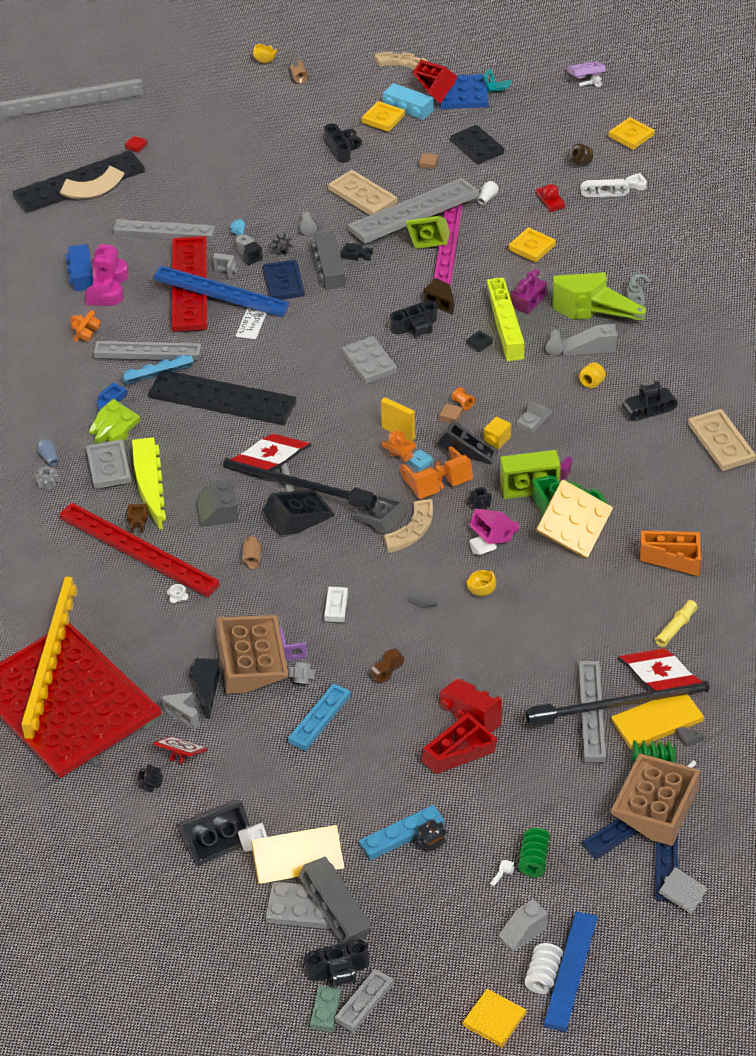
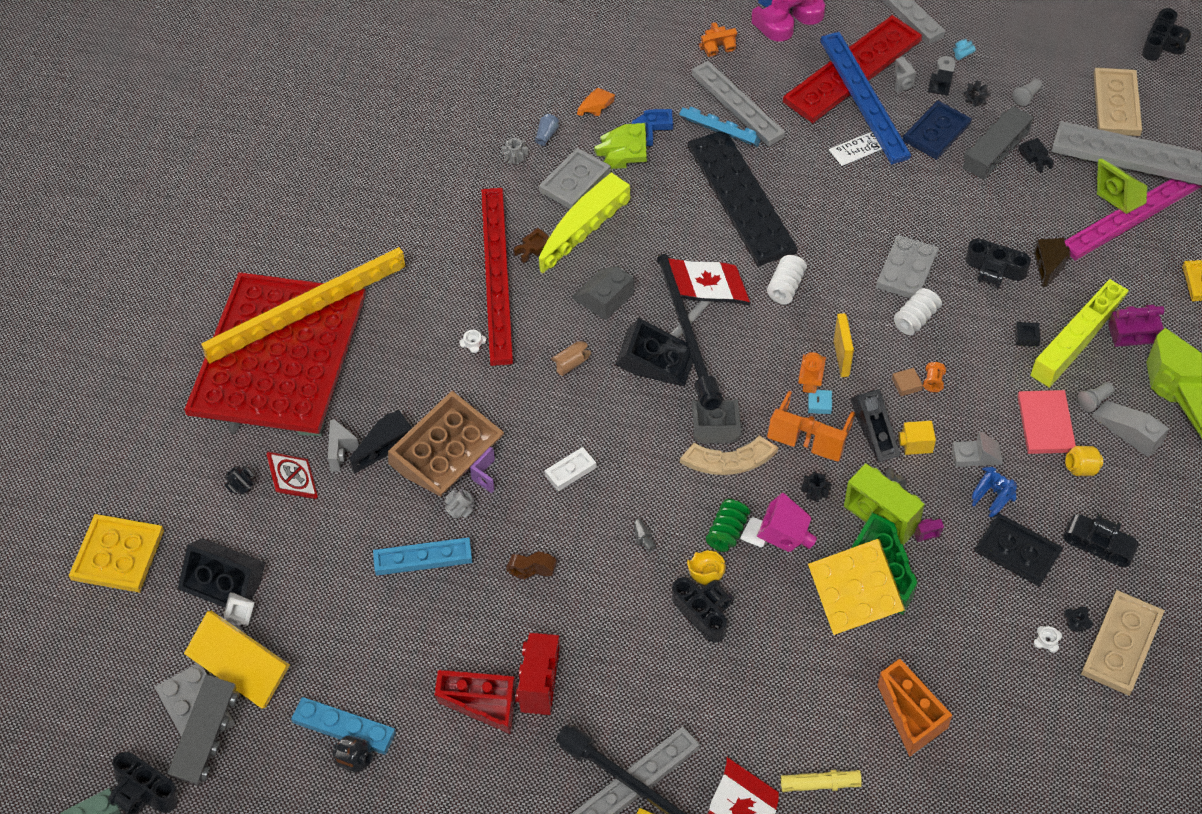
camera: 50 degrees right, 10 degrees up
(58, 415) = (595, 102): none -> orange slope
(131, 882) = (116, 553): none -> yellow plate
(316, 415) = (786, 279): none -> white piece
(409, 374) = (917, 311): none -> white piece
(463, 554) = (727, 525): none -> green piece
(507, 603) = (711, 599): none -> black piece
(546, 374) = (1046, 421): none -> coral tile
(564, 424) = (1005, 489): none -> blue piece
(616, 443) = (1018, 549): none -> black tile
(687, 468) = (1051, 633): none -> white plate
(688, 448) = (1078, 625): none -> black plate

